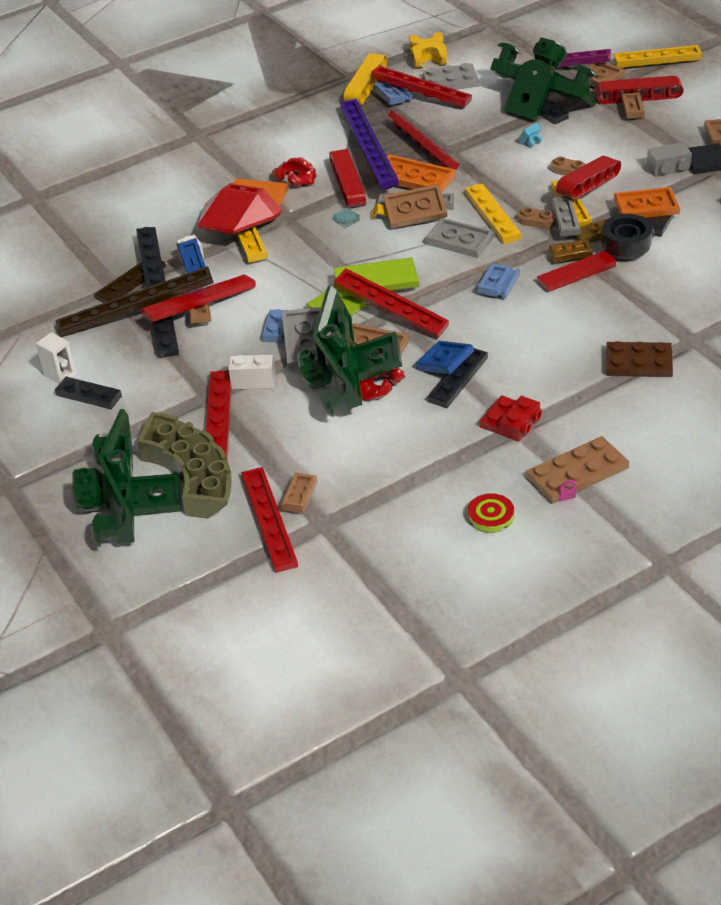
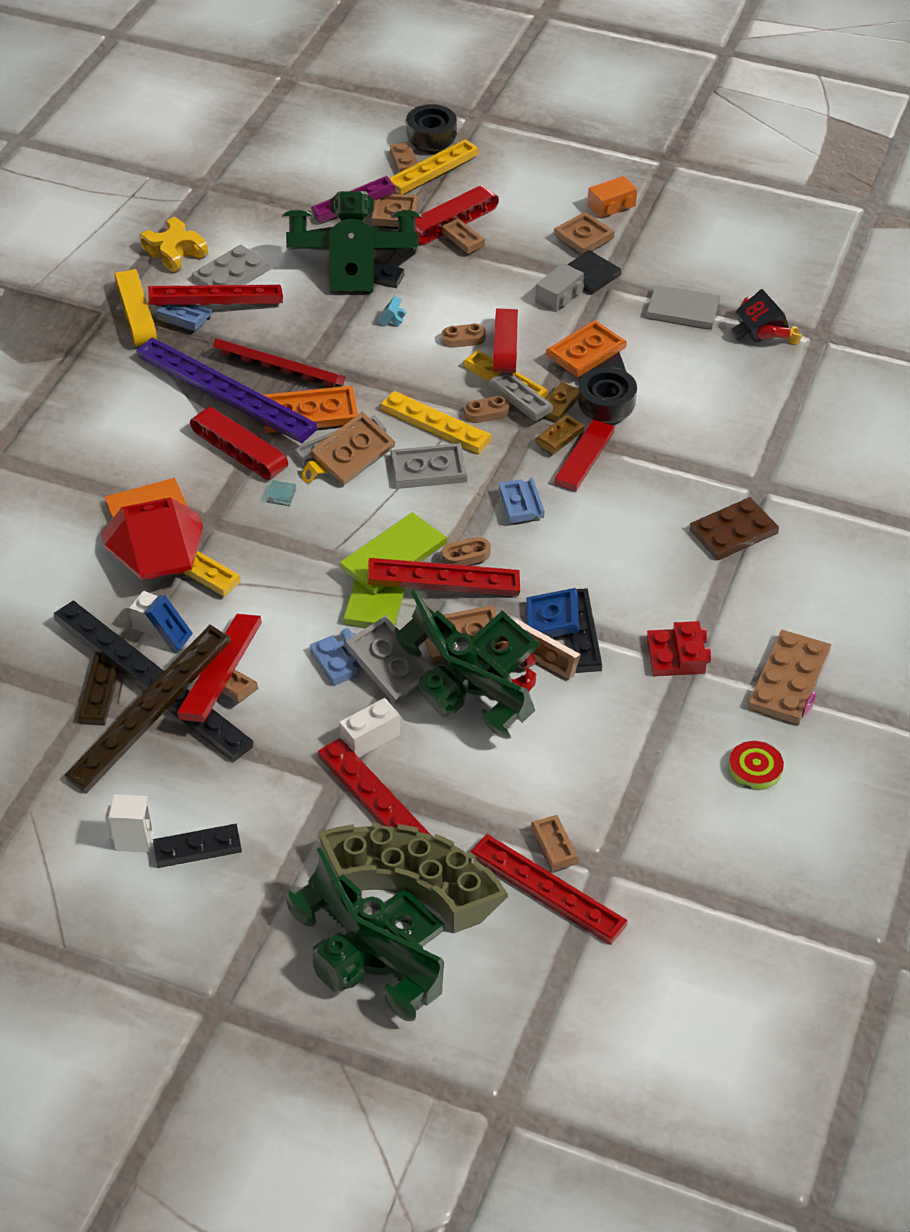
camera: 40 degrees left, 5 degrees up
(300, 165) = (152, 467): red piece -> none
(415, 375) = (552, 653): none -> medium nougat plate
(427, 297) = (466, 551): none -> medium nougat plate
(644, 42) = (403, 156): none -> medium nougat plate
(677, 29) = (431, 127): none -> black piece

